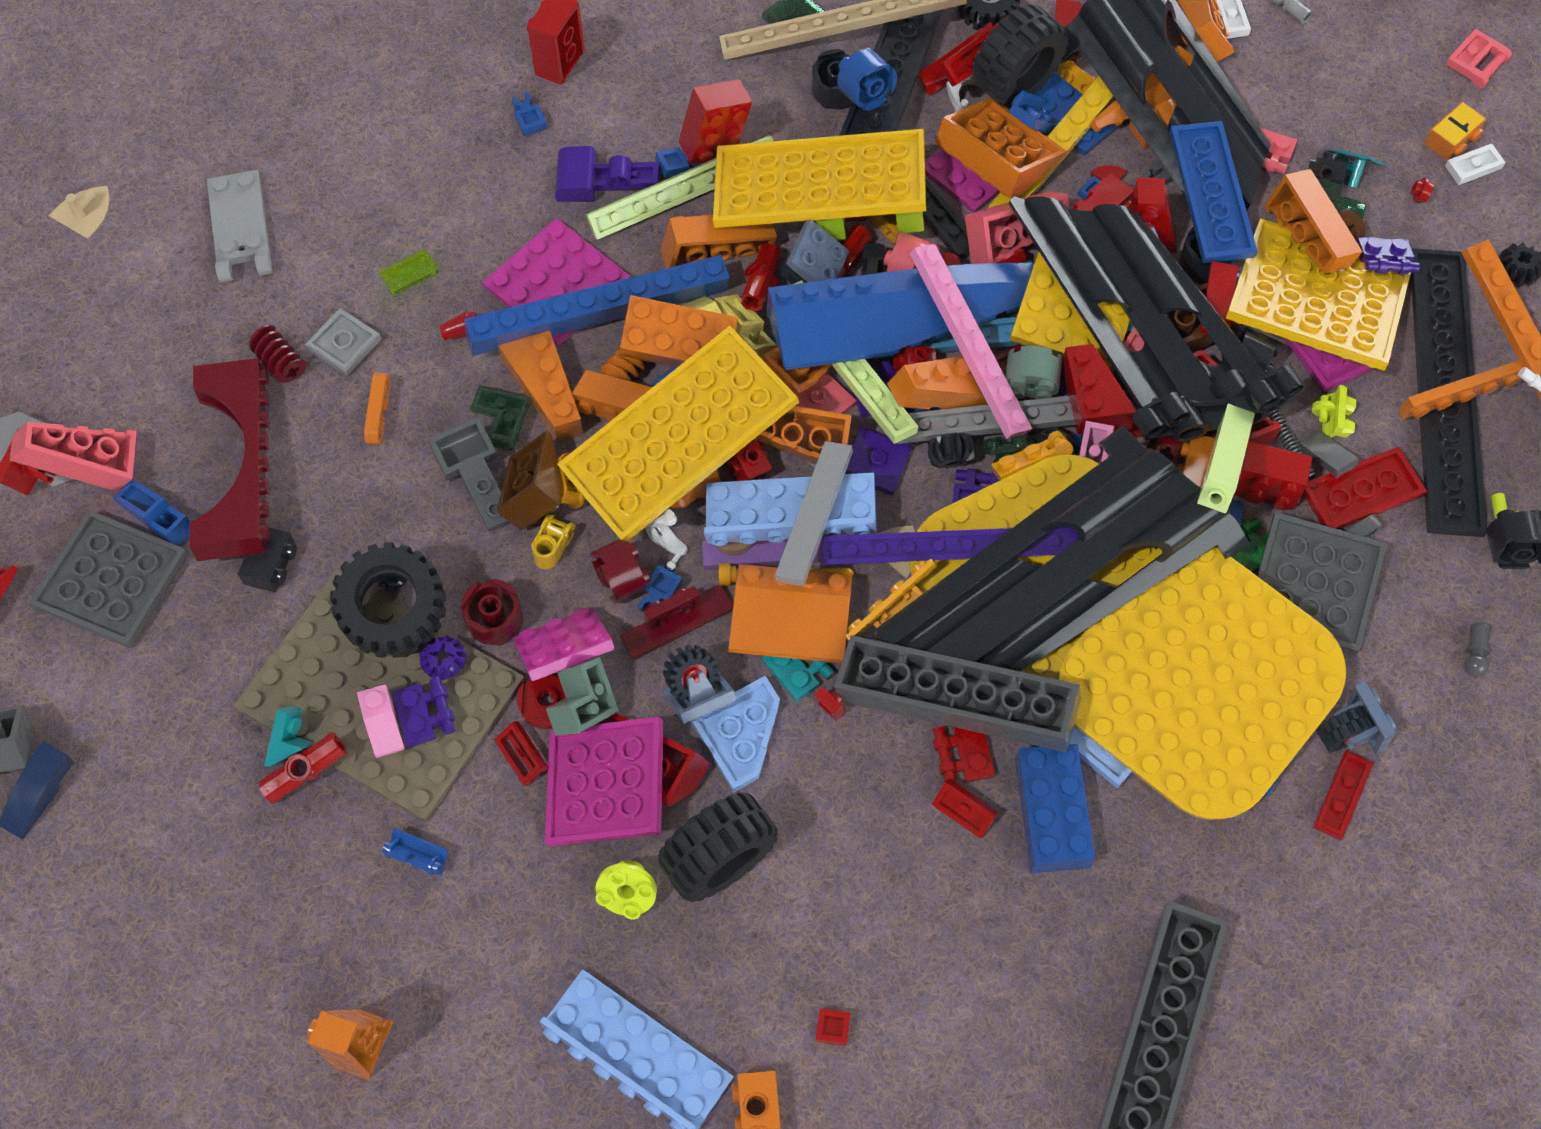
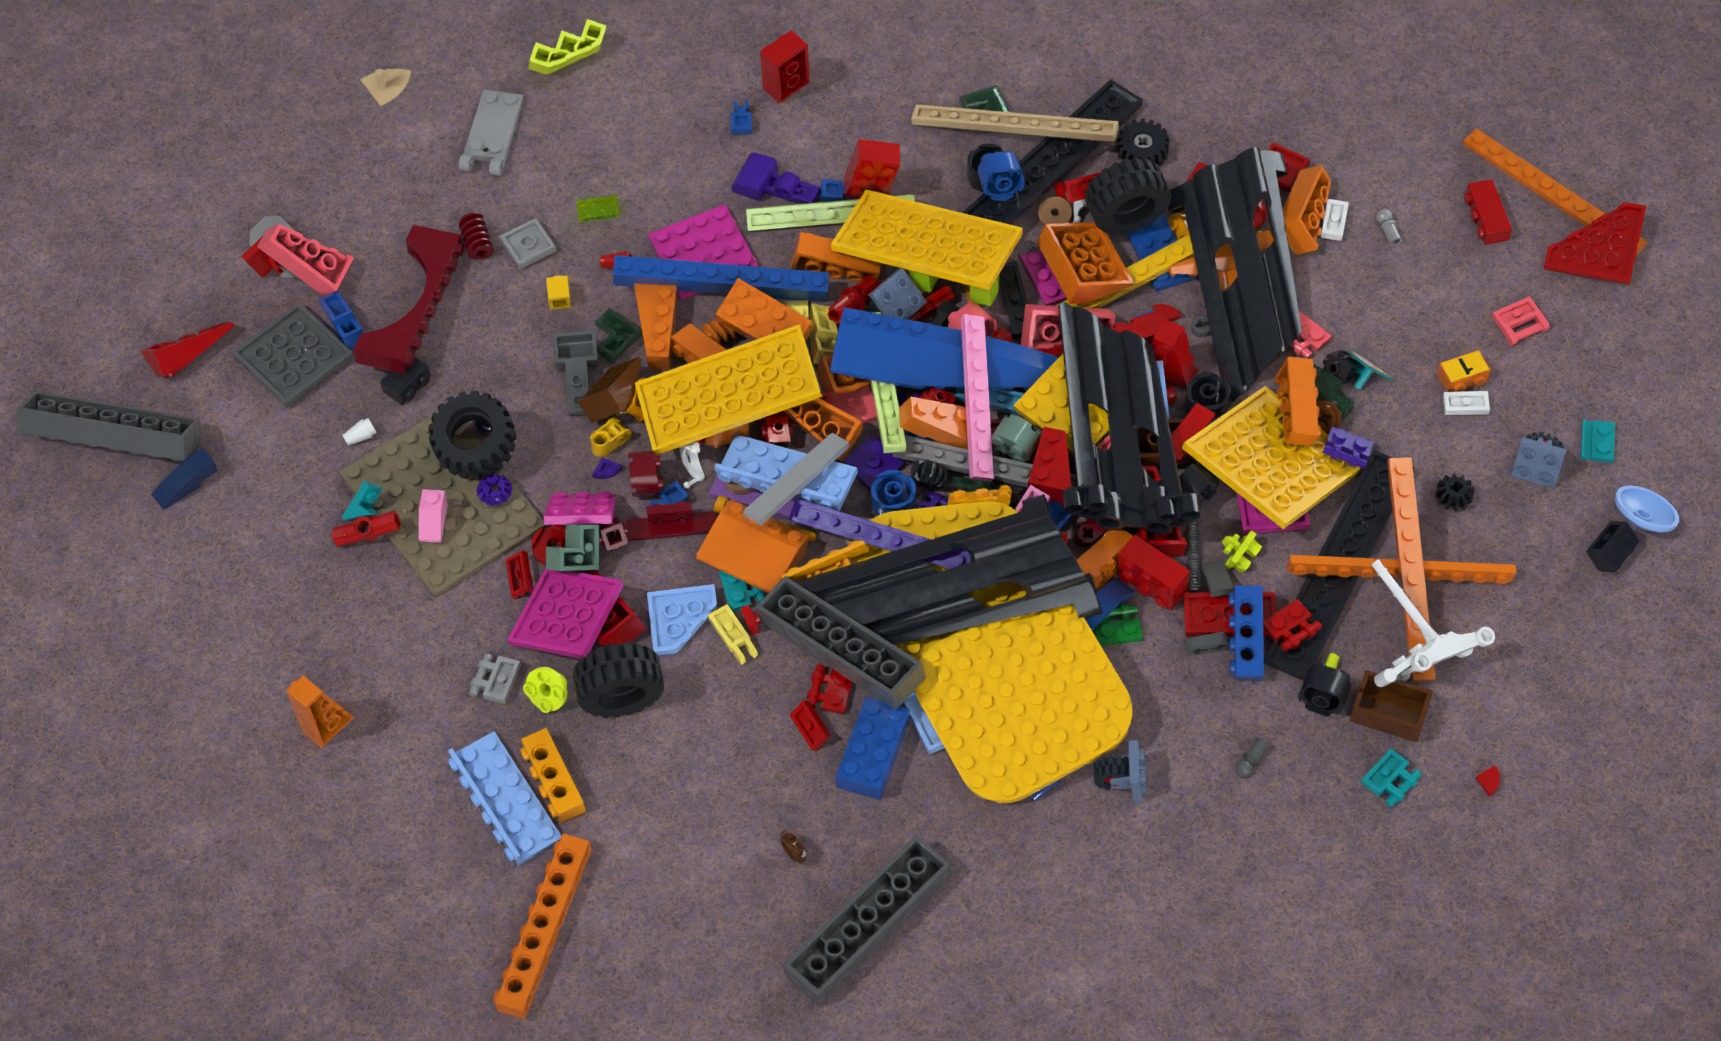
camera: 25 degrees right, 5 degrees down
(238, 645) = (359, 432): none -> white cone
(289, 99) = (568, 49): none -> neon yellow brick
(377, 404) = (530, 297): orange beam -> none
(408, 387) = (558, 292): none -> yellow brick
(414, 713) = (457, 521): dark purple plate -> none
(416, 851) = (417, 613): blue hinge -> none
(492, 612) = (543, 471): dark red brick -> none
(560, 896) = (500, 681): none -> light grey plate
(565, 580) = (606, 469): none -> dark purple tile
(619, 661) = (616, 539): none -> dark red brick
(654, 962) = (539, 745): none -> light orange brick
(695, 684) = (659, 569): plate -> none
(814, 727) = (732, 632): none -> light yellow hinge
(832, 1027) = (644, 832): red plate -> none
(922, 489) = (893, 492): none -> blue brick
(931, 95) = (1054, 204): none -> medium nougat piece
(1024, 973) = (792, 846): none -> reddish brown gear
(1028, 110) = (1123, 242): blue bracket -> none
(1213, 192) = (1226, 351): blue plate -> none
(1226, 459) = (1107, 542): yellowish green brick -> none
(1324, 574) = (1157, 663): dark grey plate -> none
(1343, 795) = (1092, 820): red tile -> none
(1407, 491) = (1253, 598): none -> blue brick
(1422, 190) = (1409, 408): red plate -> none
(1432, 474) = (1286, 621): none -> red plate

